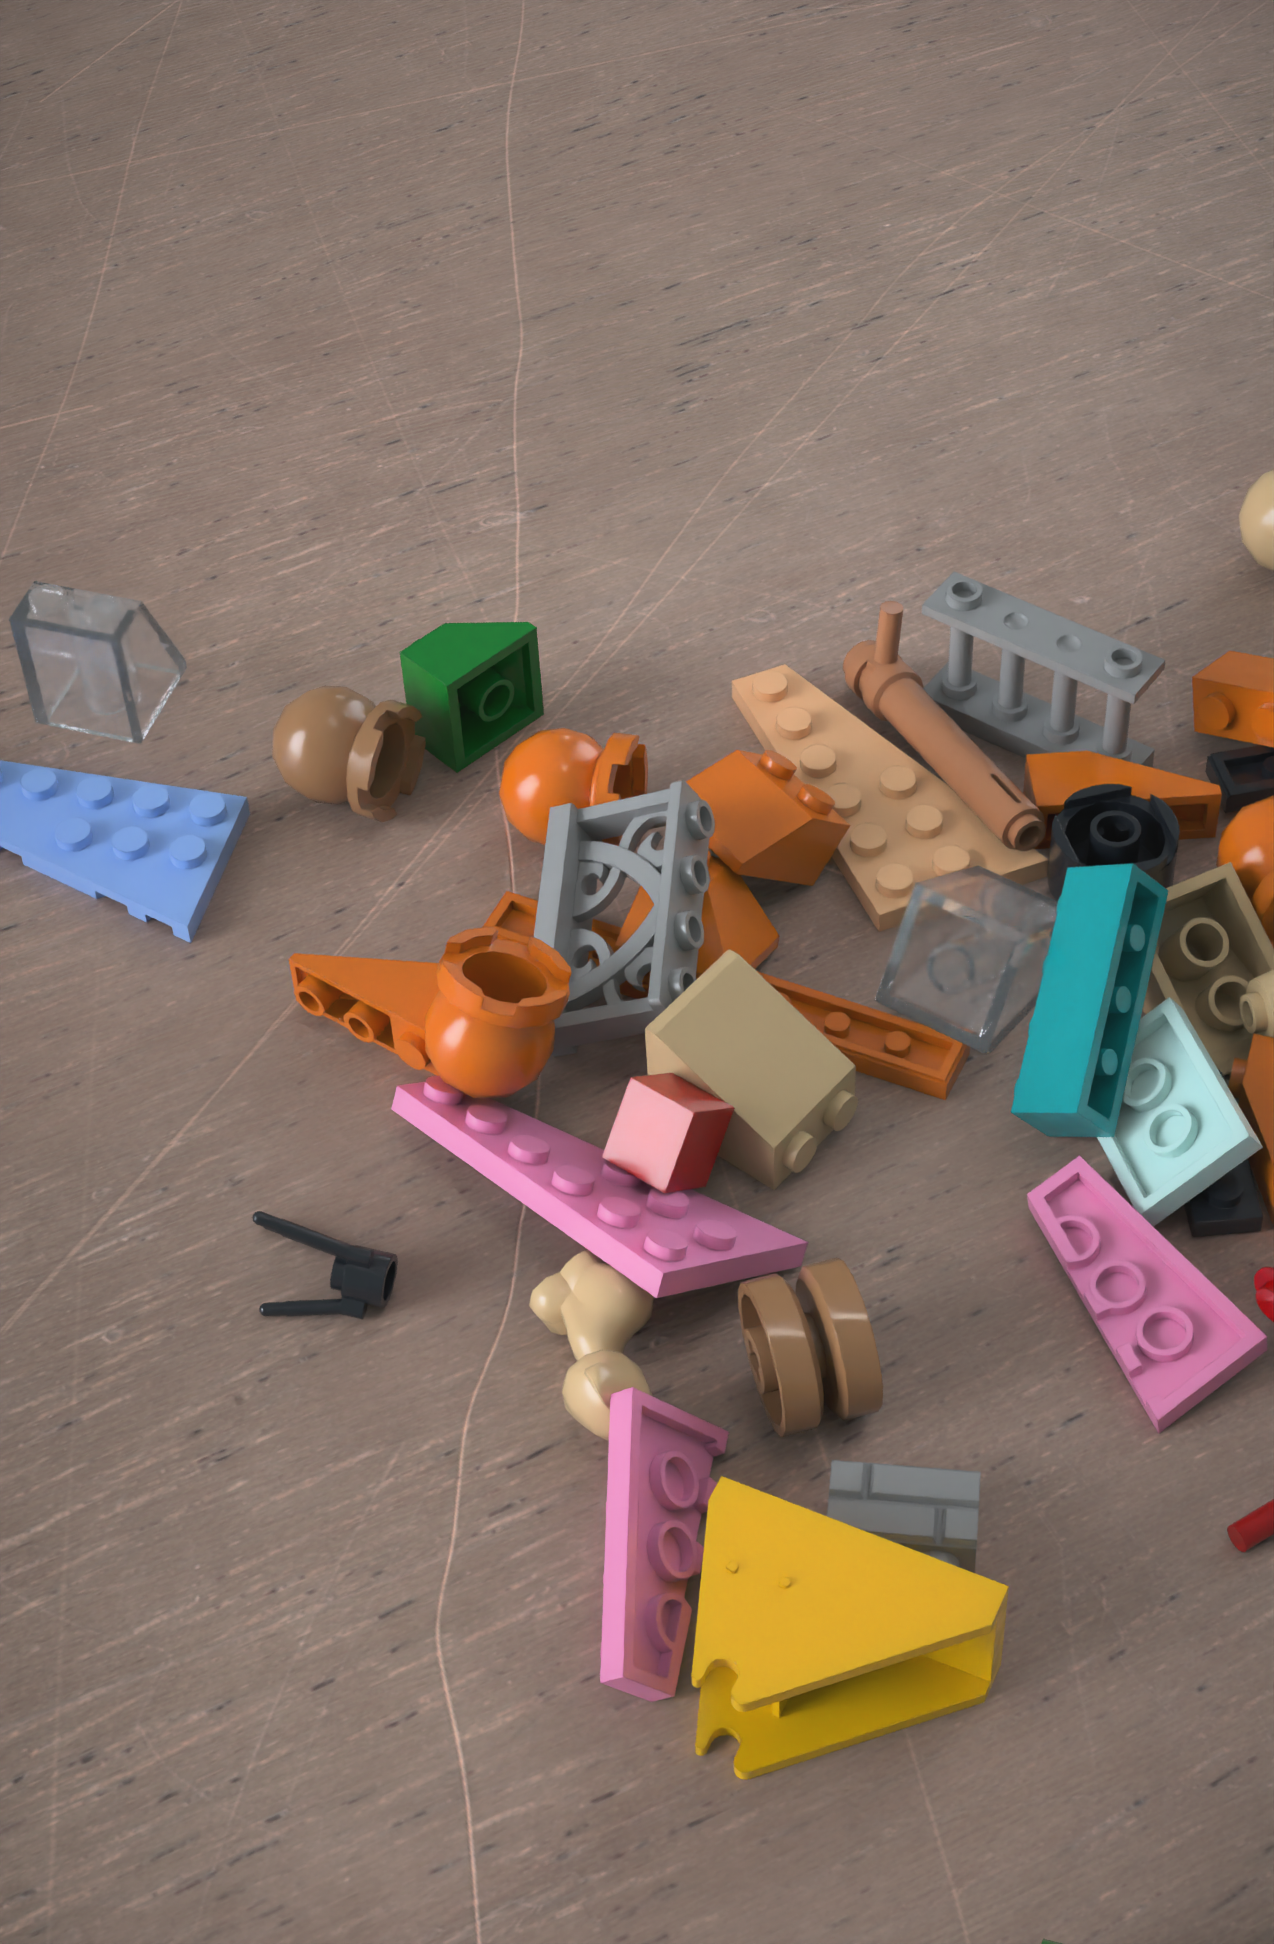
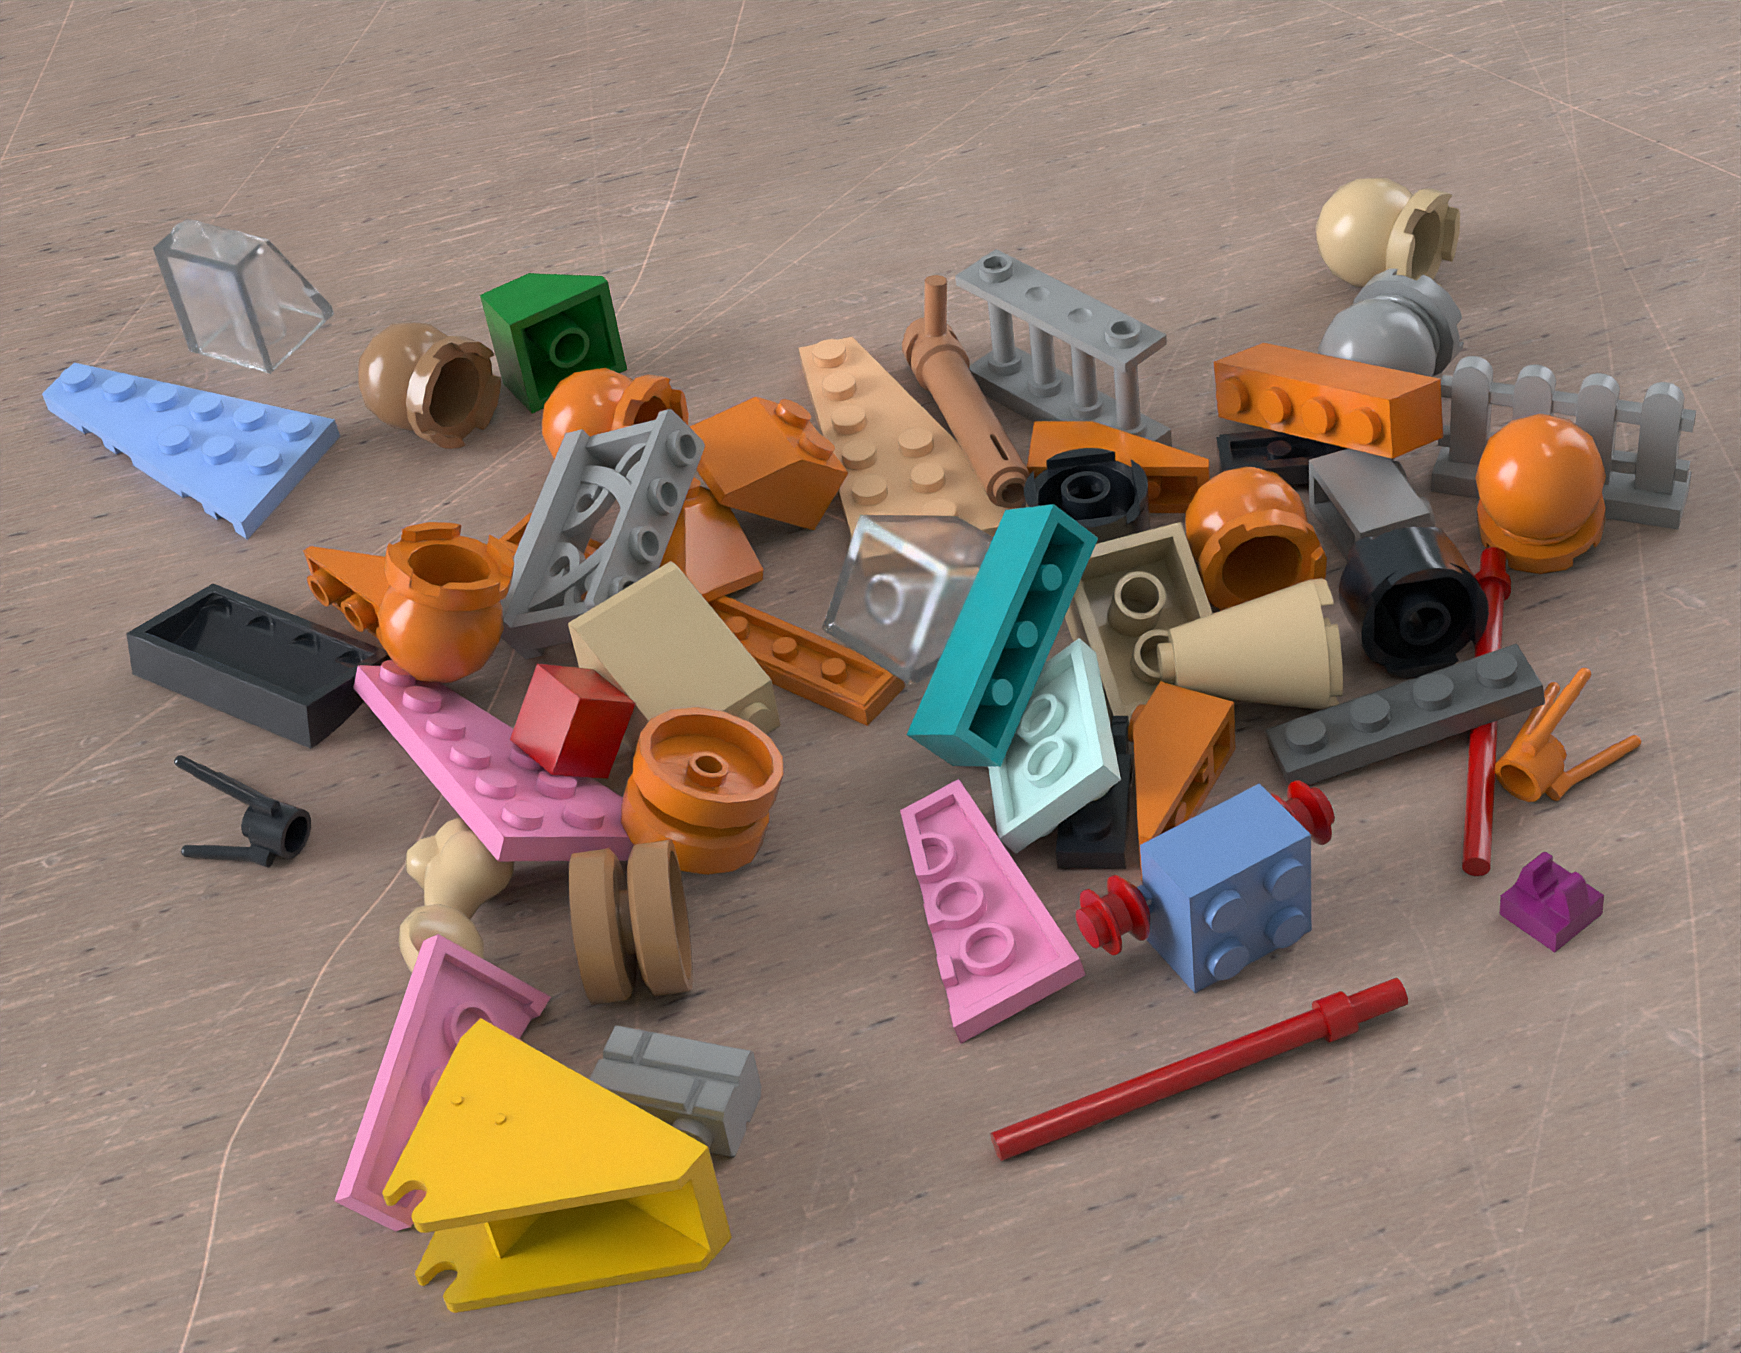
camera: 15 degrees right, 5 degrees down
(266, 1088) = (254, 663): none -> black slope
(828, 1192) = (704, 786): none -> orange wheel

